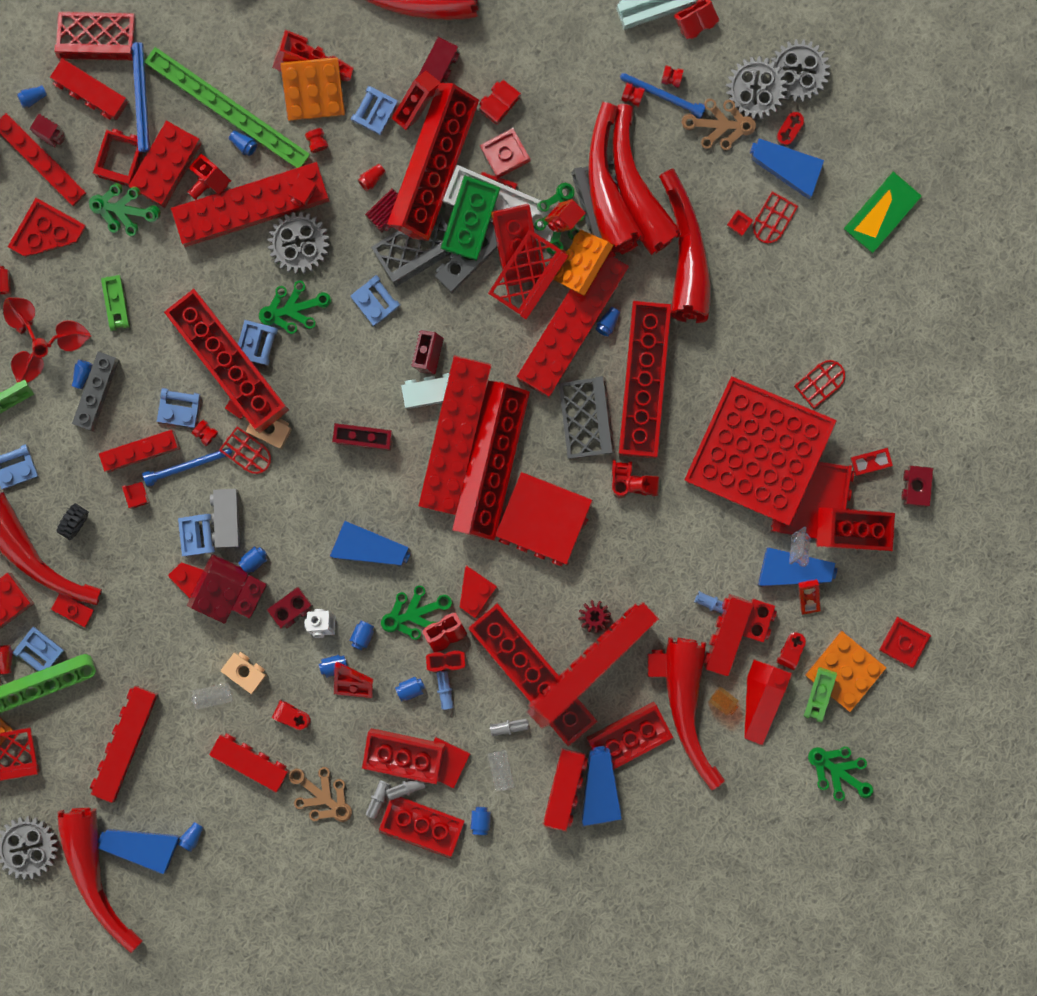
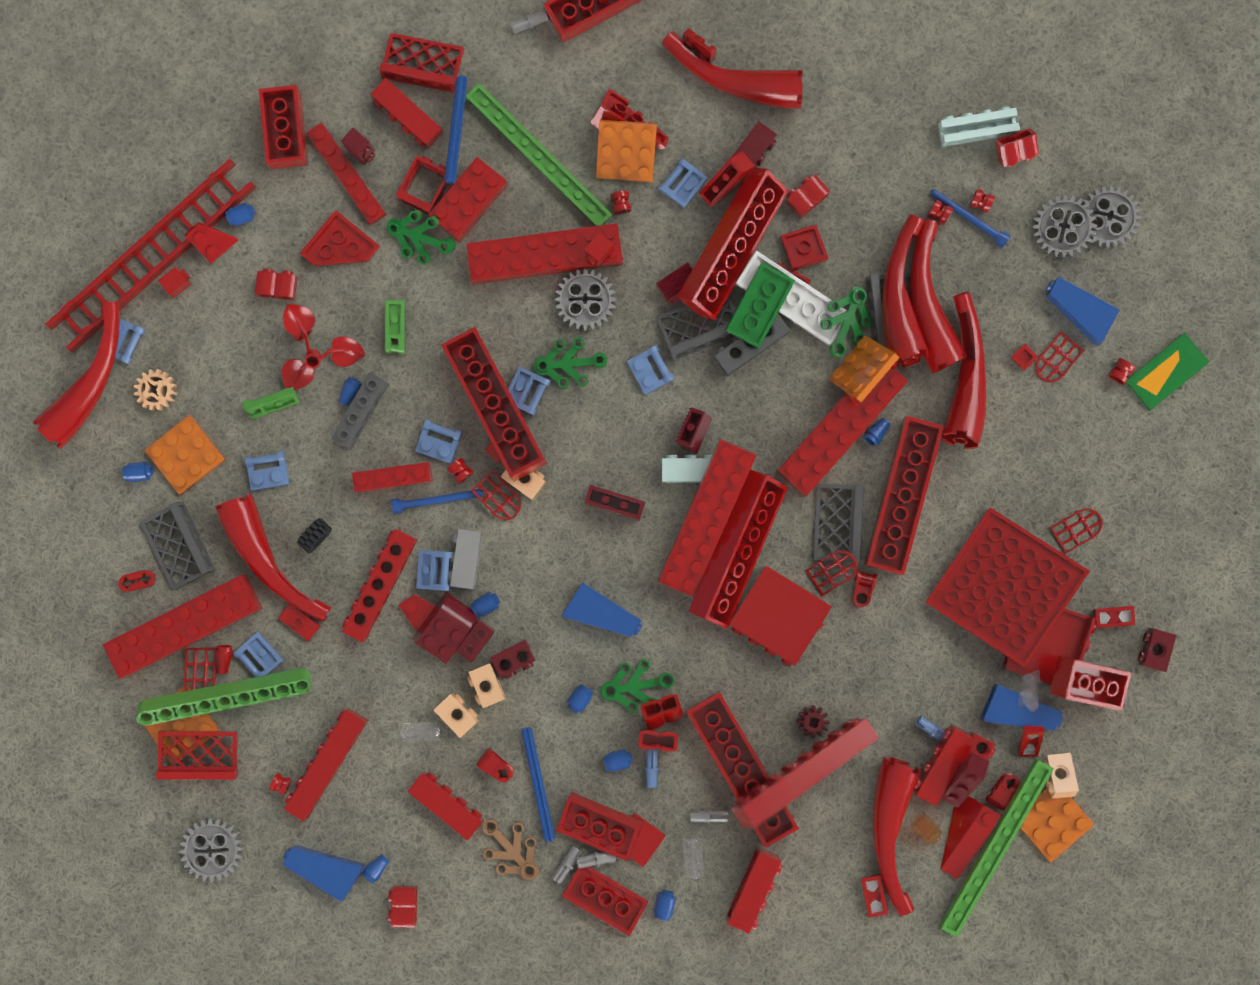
camera: 15 degrees right, 0 degrees up
(30, 96) = (348, 110): blue cone -> none
(81, 849) = (264, 860): red brick -> none
(82, 771) = (280, 784): none -> red wheel
(135, 495) = (381, 519): red panel -> none
(136, 607) = (361, 631): none -> red brick
(209, 177) = (508, 219): red brick -> none
(225, 868) = (403, 906): none -> red brick
(244, 143) = (549, 193): blue cone -> none
(278, 644) = (486, 673): none -> light nougat brick
(320, 623) = (540, 679): white brick -> none
(328, 664) = (546, 724): blue brick -> none
(336, 726) = (538, 785): none -> blue axle
(351, 682) = (561, 744): red wing -> none
(371, 177) = (667, 248): red cone -> none
(475, 591) = (698, 675): red wing -> none
(510, 229) = (801, 340): red plate -> none
(541, 284) = (819, 382): red fence -> none
(564, 216) = (854, 320): red brick -> none
(587, 473) = (830, 578): none -> red window
(600, 793) = (788, 900): blue slope -> none
(632, 735) = (827, 848): red slope -> none
(643, 485) = (884, 600): red piece -> none
(656, 664) = (866, 780): red brick -> none
(683, 775) = (874, 896): none -> red piece
(721, 124) = (1023, 256): medium nougat plant -> none
(750, 644) = (966, 779): none -> dark red brick
(786, 126) = (1092, 275): red beam -> none
(793, 705) = (996, 847): none -> bright green plate
(820, 694) = (1025, 840): bright green plate -> none
(837, 219) = (1121, 371): none -> red wheel
(837, 771) = (1028, 919): green plant -> none
(843, 614) = (1061, 787): none -> light nougat brick
(904, 642) = (1116, 802): red tile -> none

